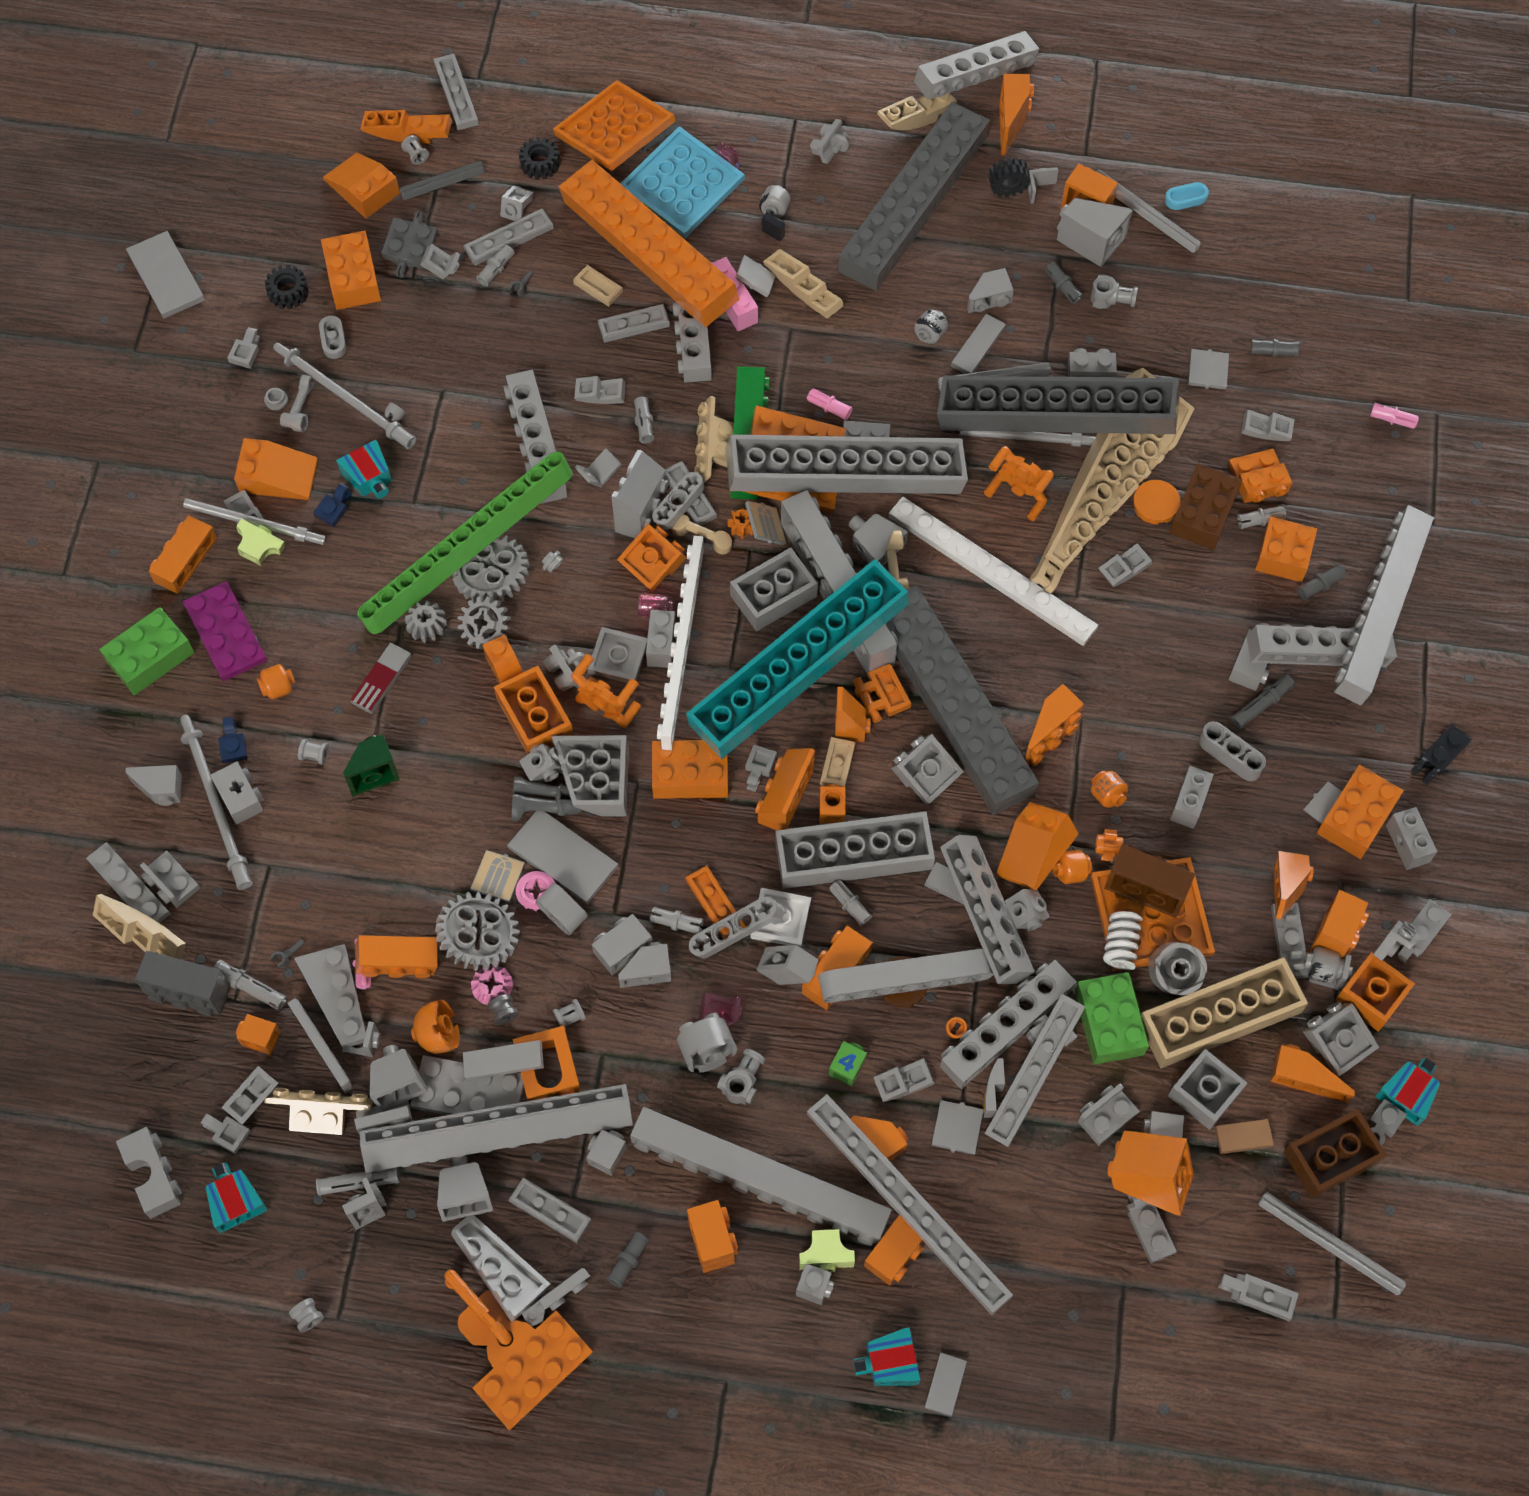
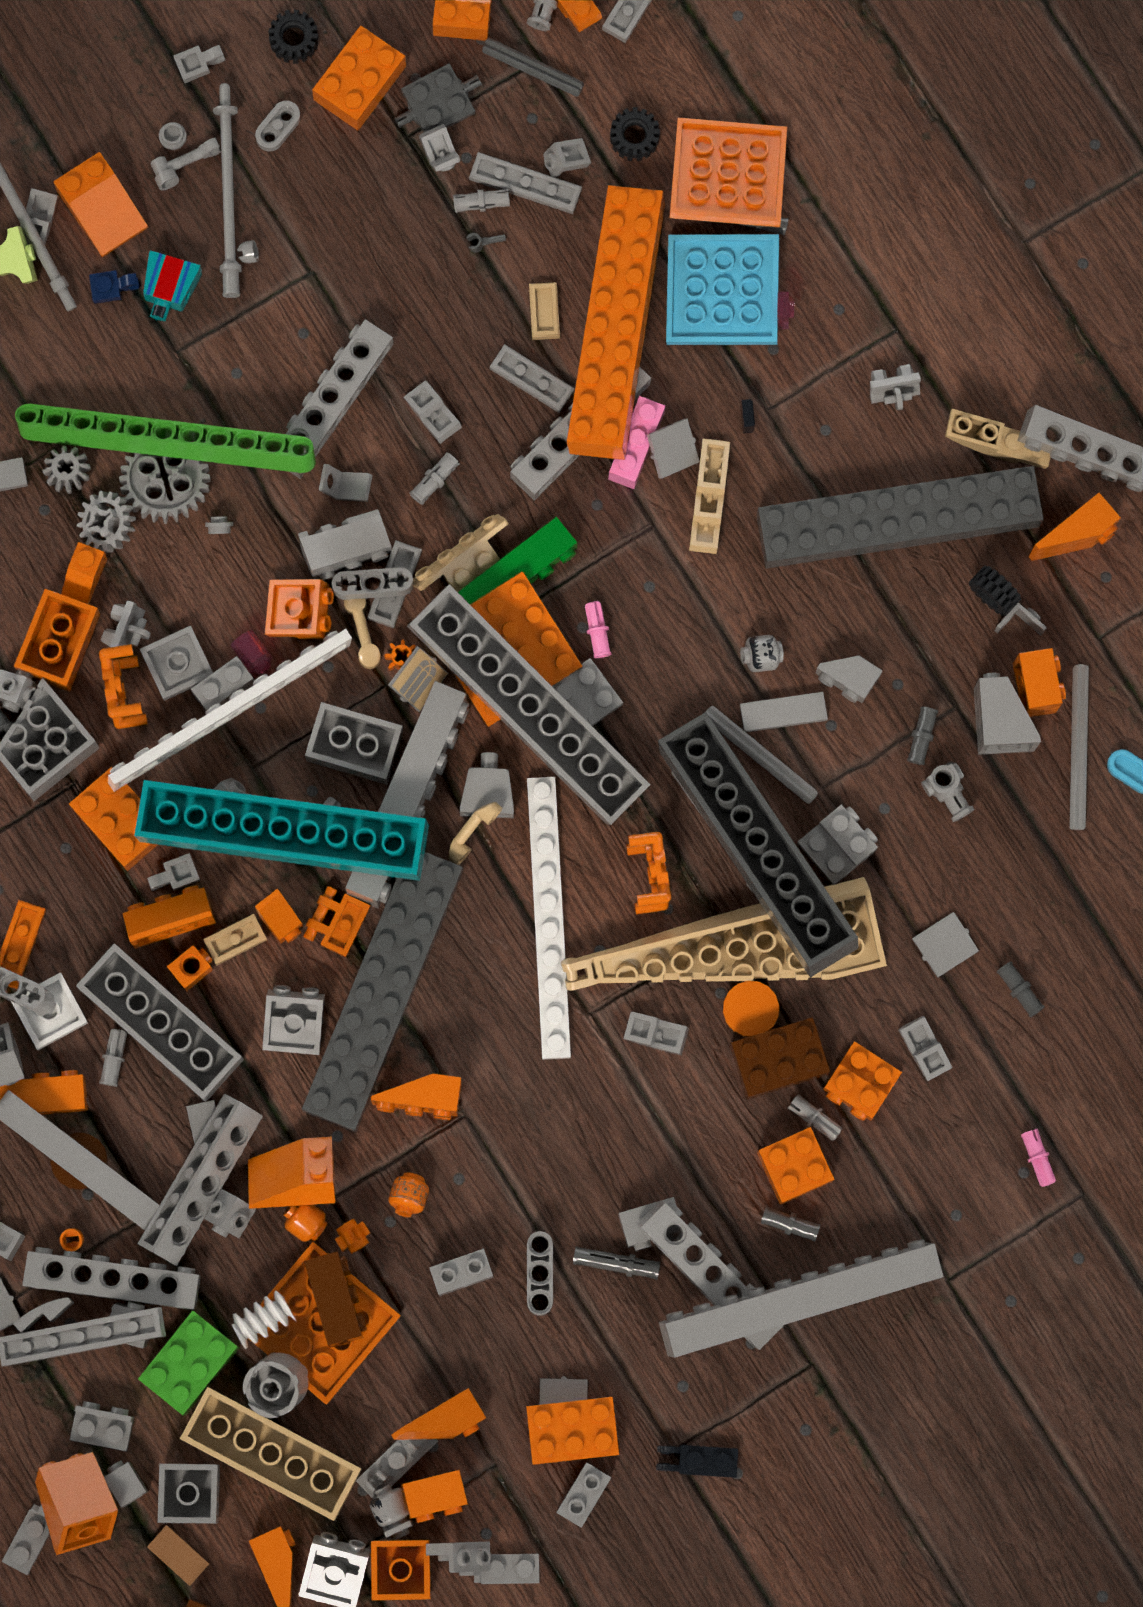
camera: 45 degrees right, 15 degrees up
(775, 200) = (776, 393): light grey head -> none

